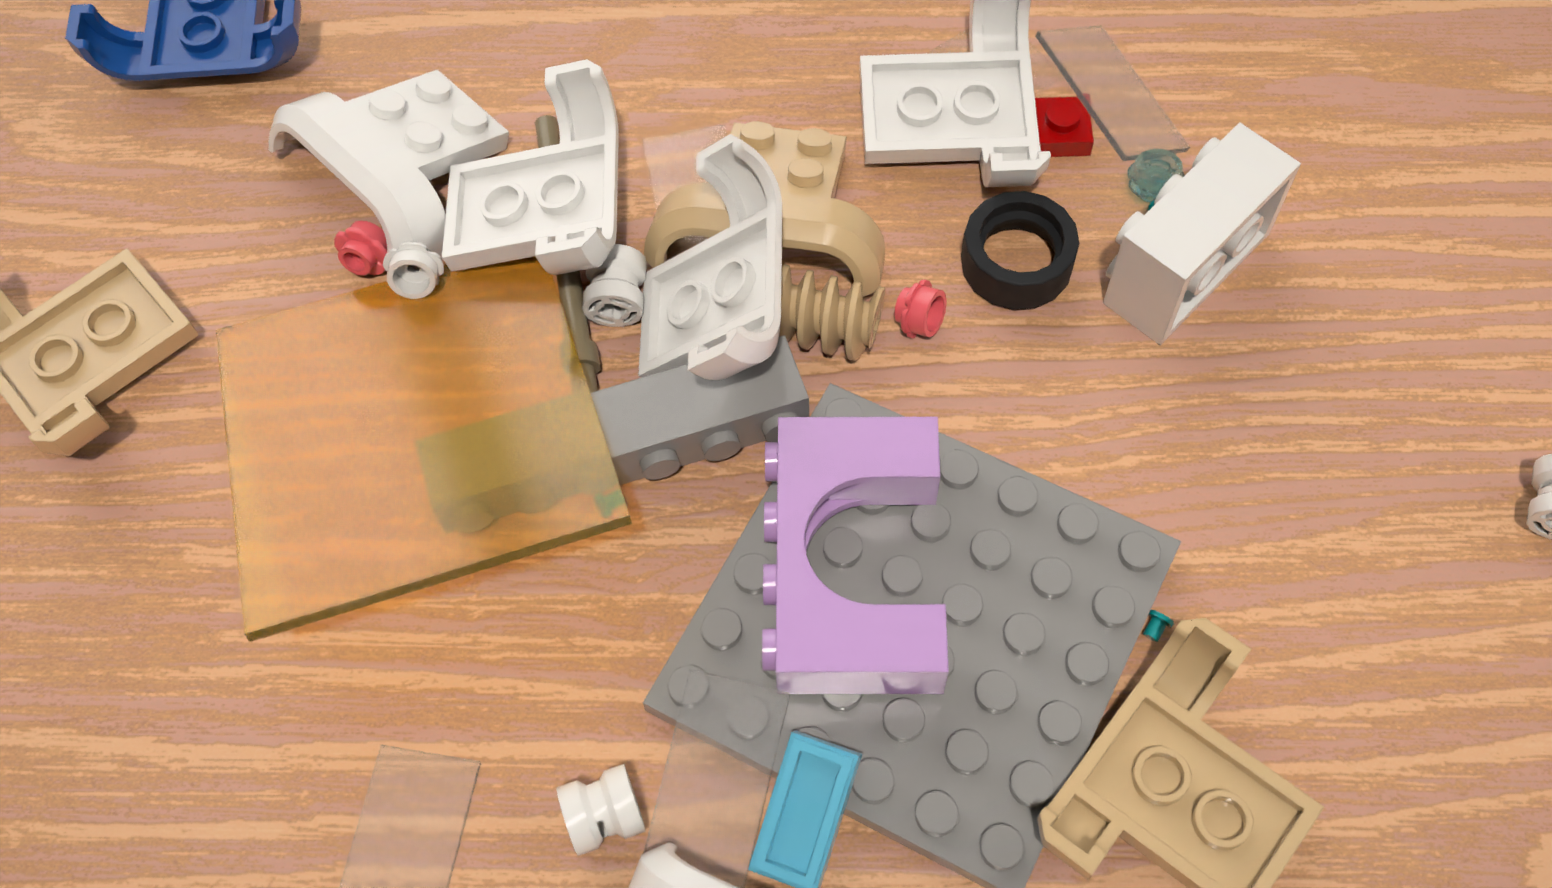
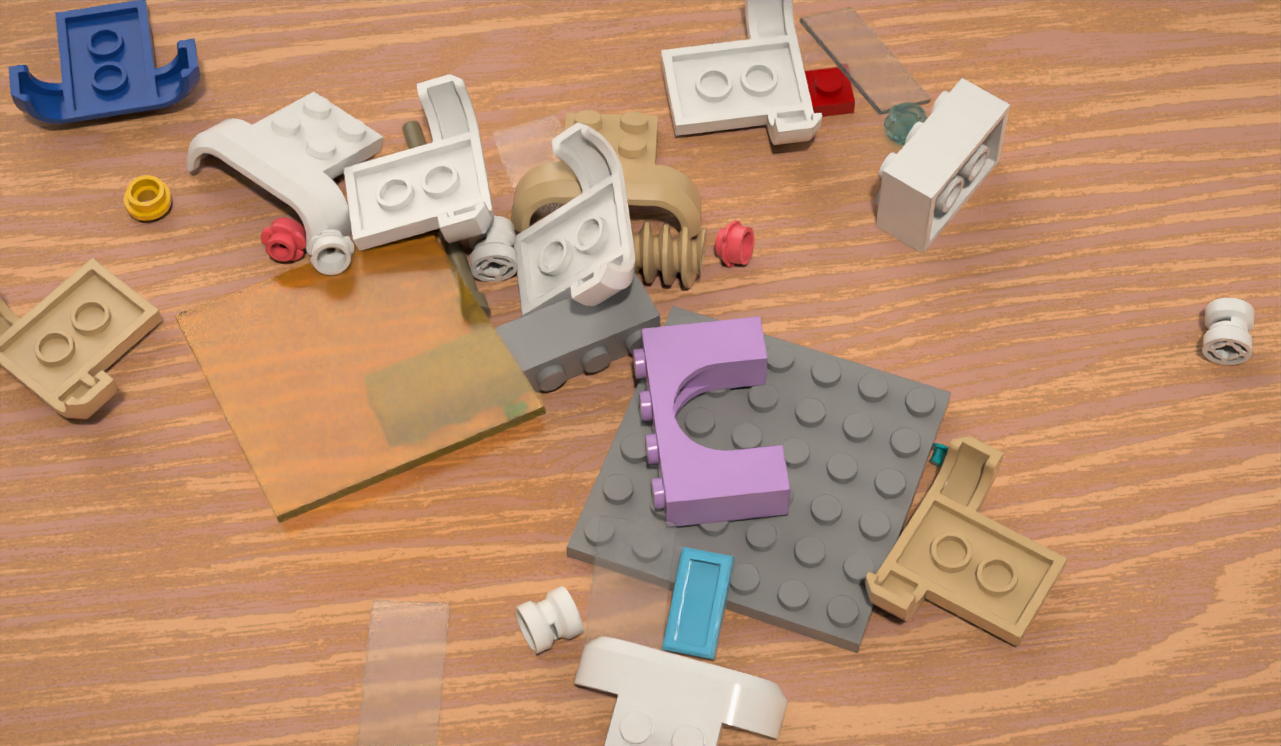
camera: 10 degrees left, 5 degrees down
(214, 180) = (143, 189): none -> yellow plate
(1028, 213) = (810, 162): black tyre -> none

